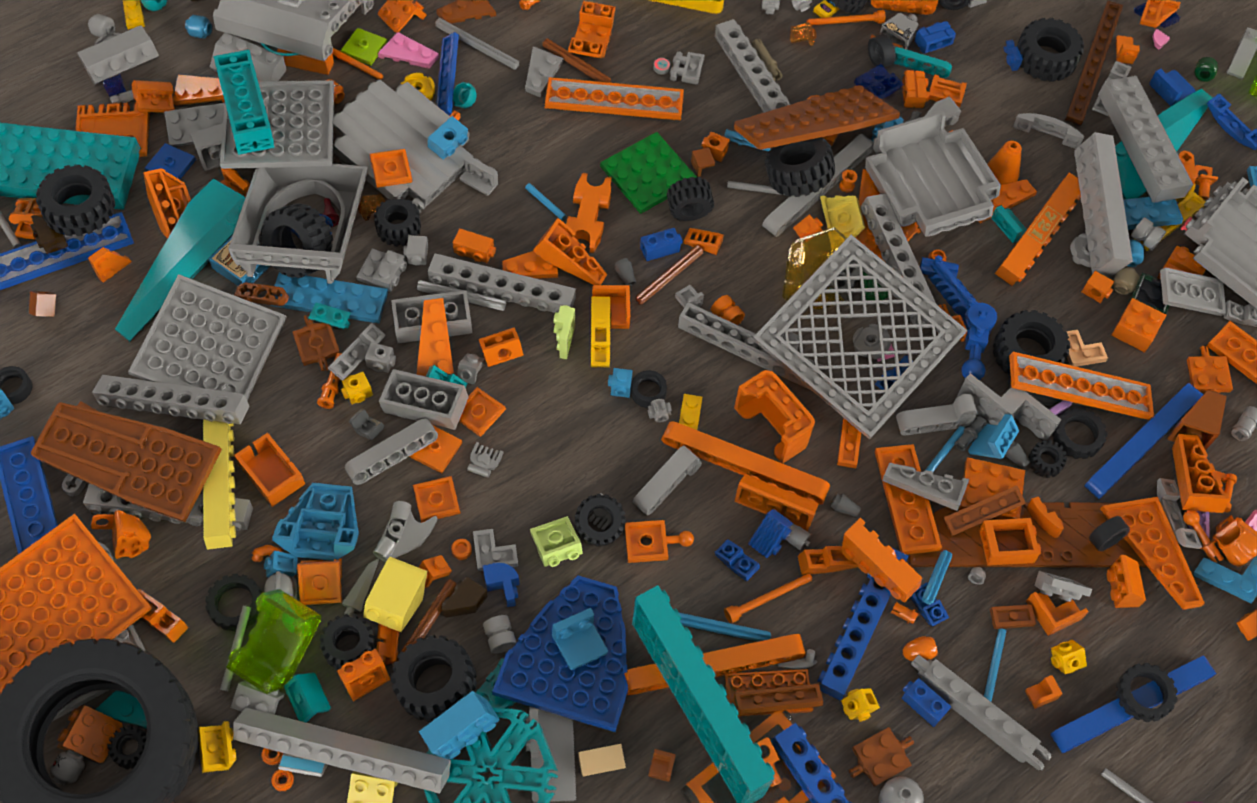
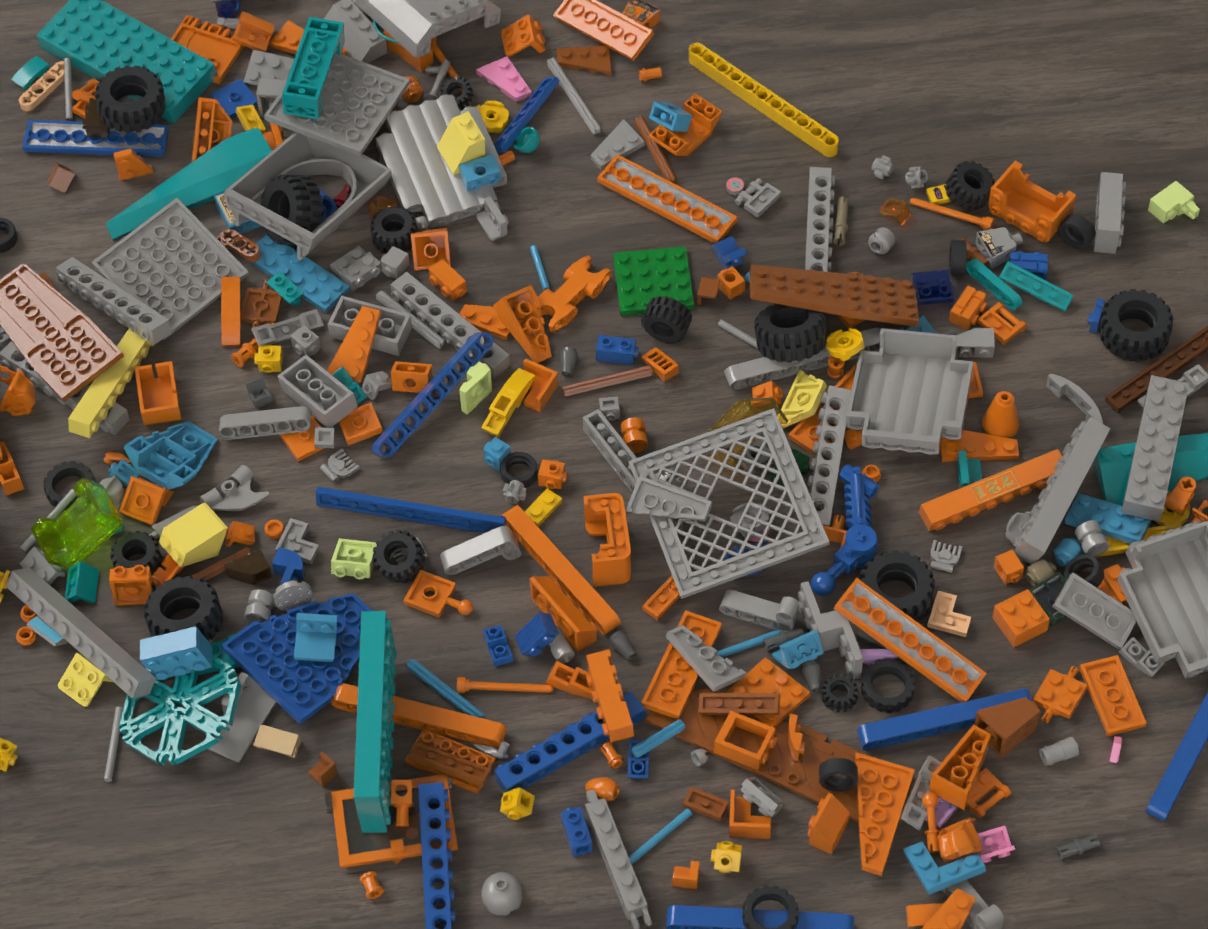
camera: 35 degrees right, 5 degrees down
(196, 175) = (249, 118): none -> yellow plate
(292, 359) = (230, 311): none -> orange slope
(349, 65) = (441, 70): none -> light grey piece
(364, 46) = (468, 58): lime plate -> none
(374, 70) = (455, 84): none -> black tyre
(390, 168) = (413, 179): orange tile -> none
(420, 116) = (461, 142): none -> light yellow slope
(436, 498) = (280, 479): orange tile -> none
(441, 223) = (430, 248): none -> orange slope
(457, 439) = (324, 437): none -> light grey plate
(526, 606) = (292, 595): none -> light grey tile
(532, 355) = (424, 397): none -> blue beam
(576, 27) = (670, 116): none -> dark azure brick
(577, 472) = (407, 510): none -> blue plate
(682, 379) = (552, 474): none -> orange brick
(697, 123) = (728, 253): none -> blue brick
(809, 358) = (665, 501): none -> light grey wing
(810, 62) = (881, 241): none -> light grey head
(854, 164) = (845, 344): none -> yellow plate
(881, 756) = (509, 854): dark orange plate -> none
(954, 50) = (1036, 286): none -> teal tile
(1041, 303) = (944, 559): none -> light grey piece
(1156, 253) = (1085, 561): none -> black tyre

